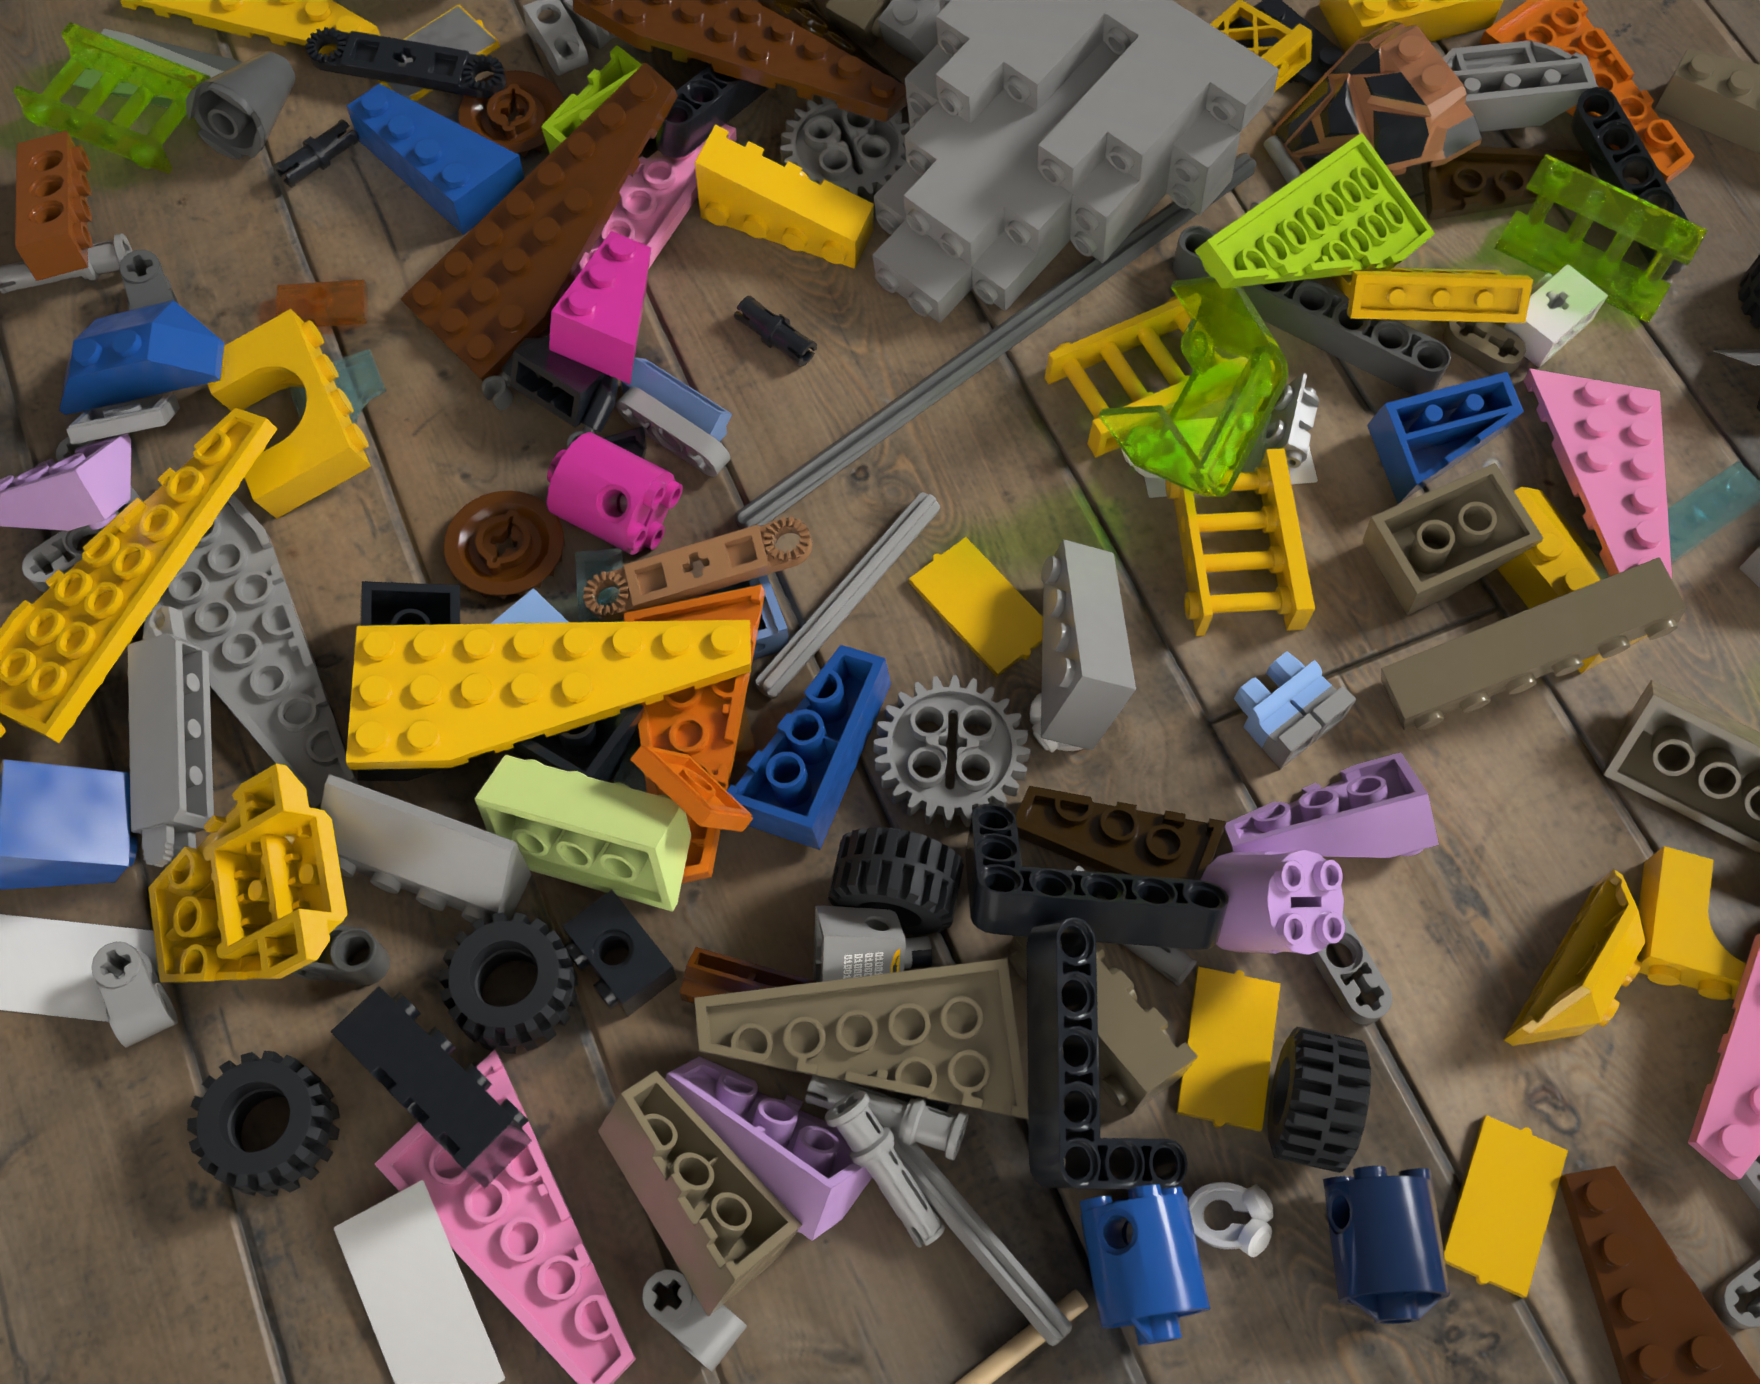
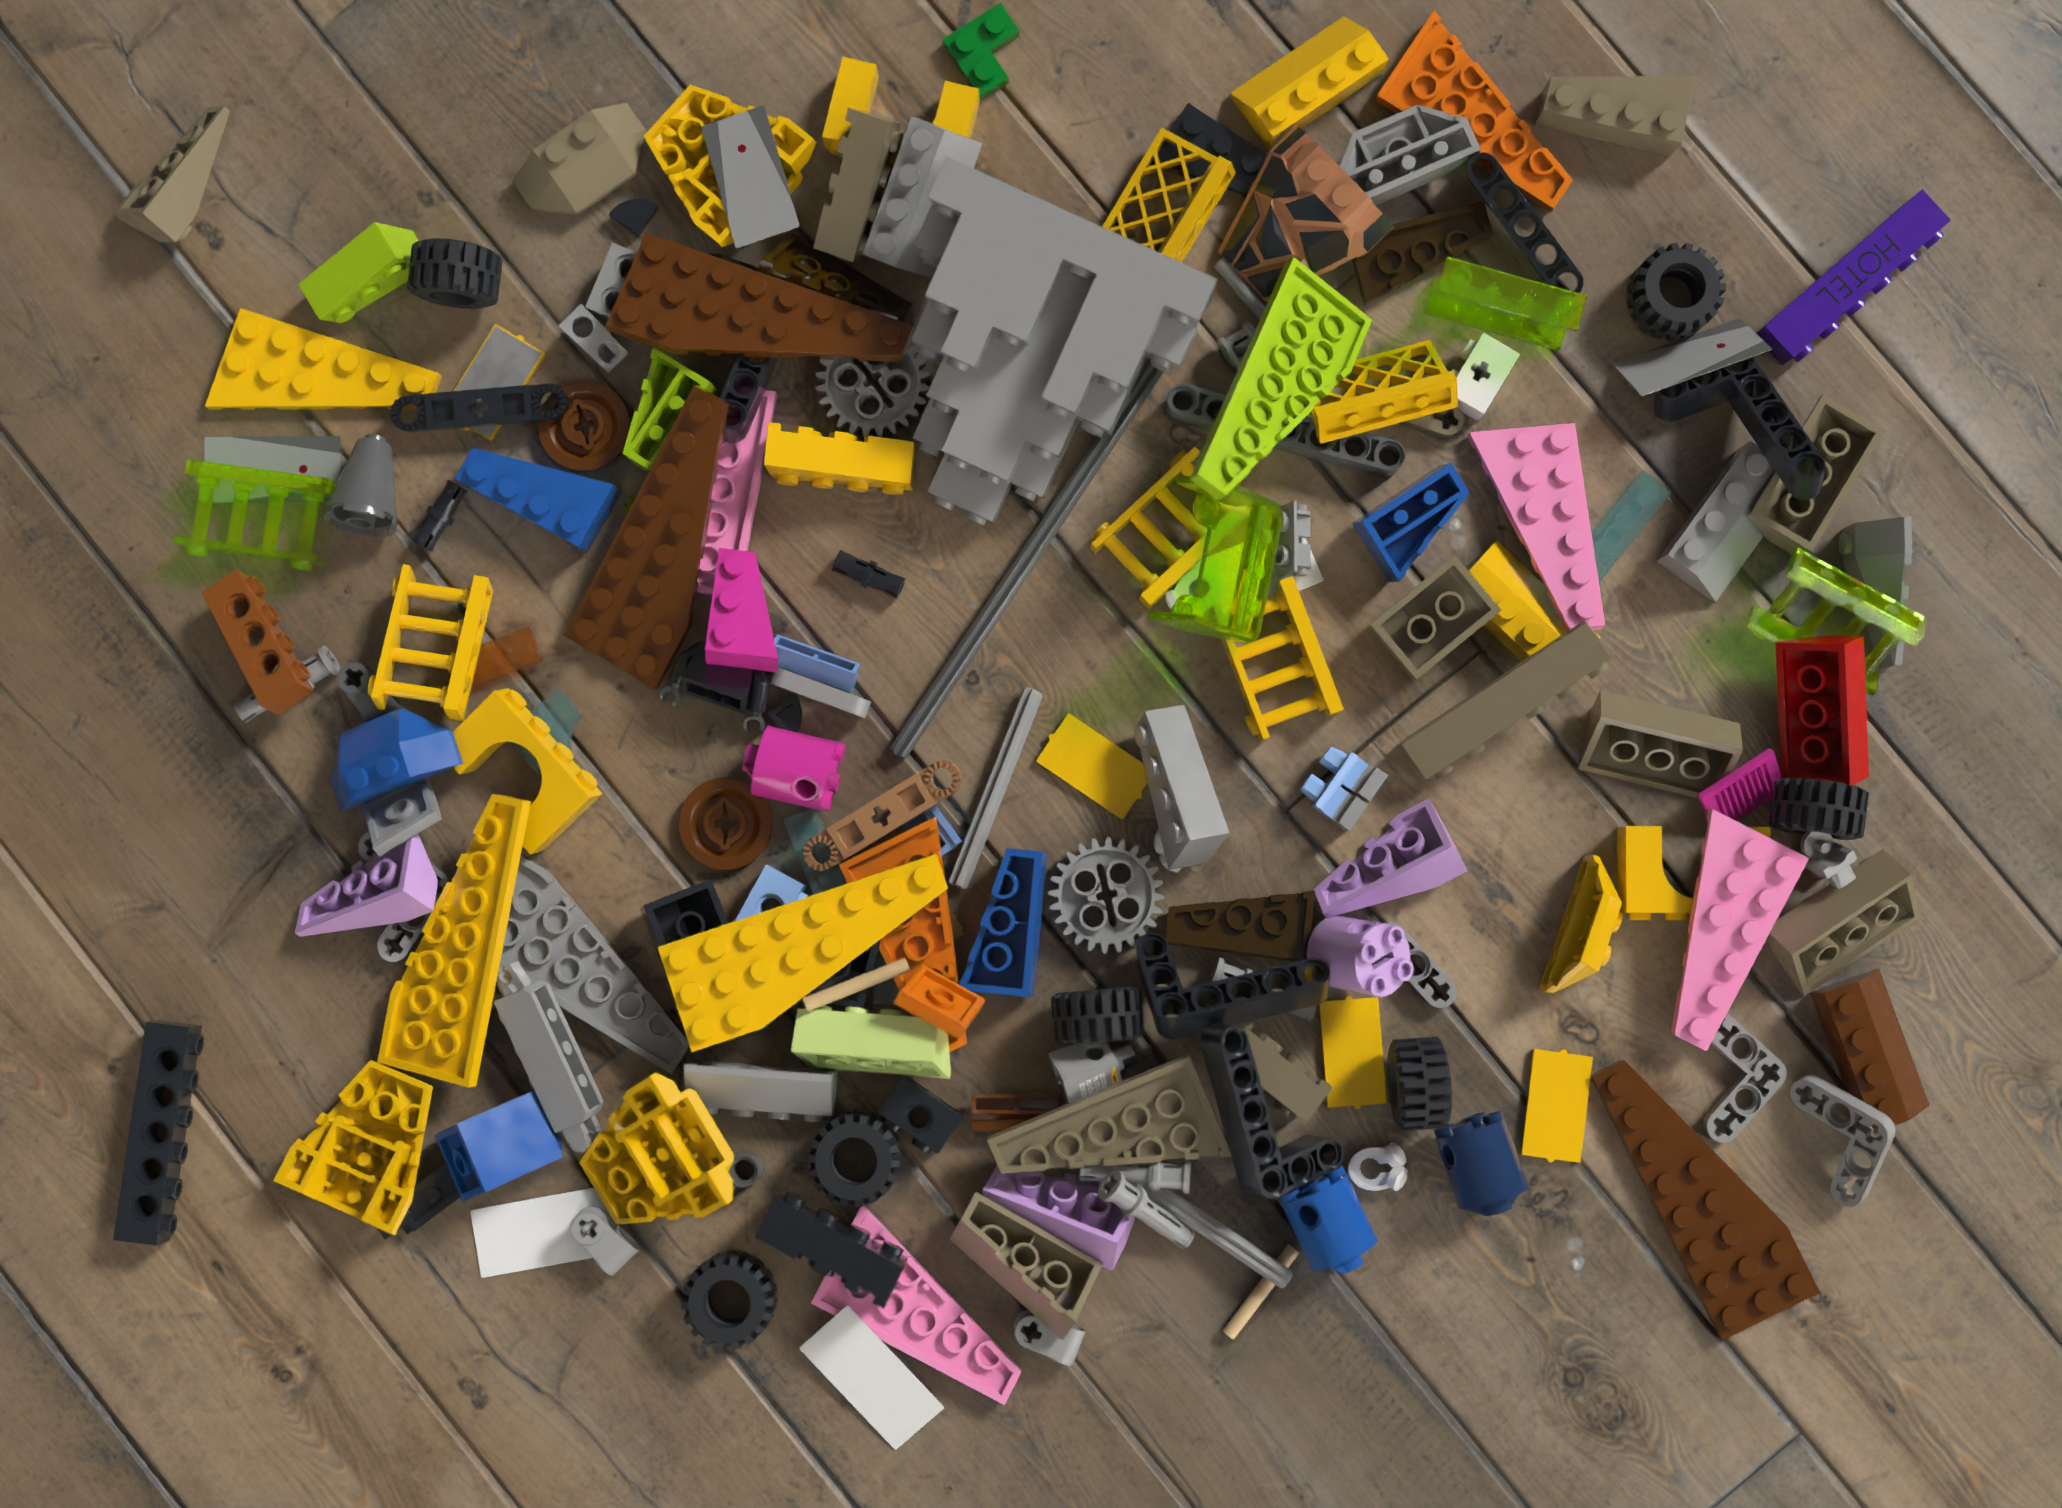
camera: 10 degrees left, 20 degrees up
(263, 285) = (460, 665): none -> yellow fence
(586, 746) = (856, 984): none -> tan bar

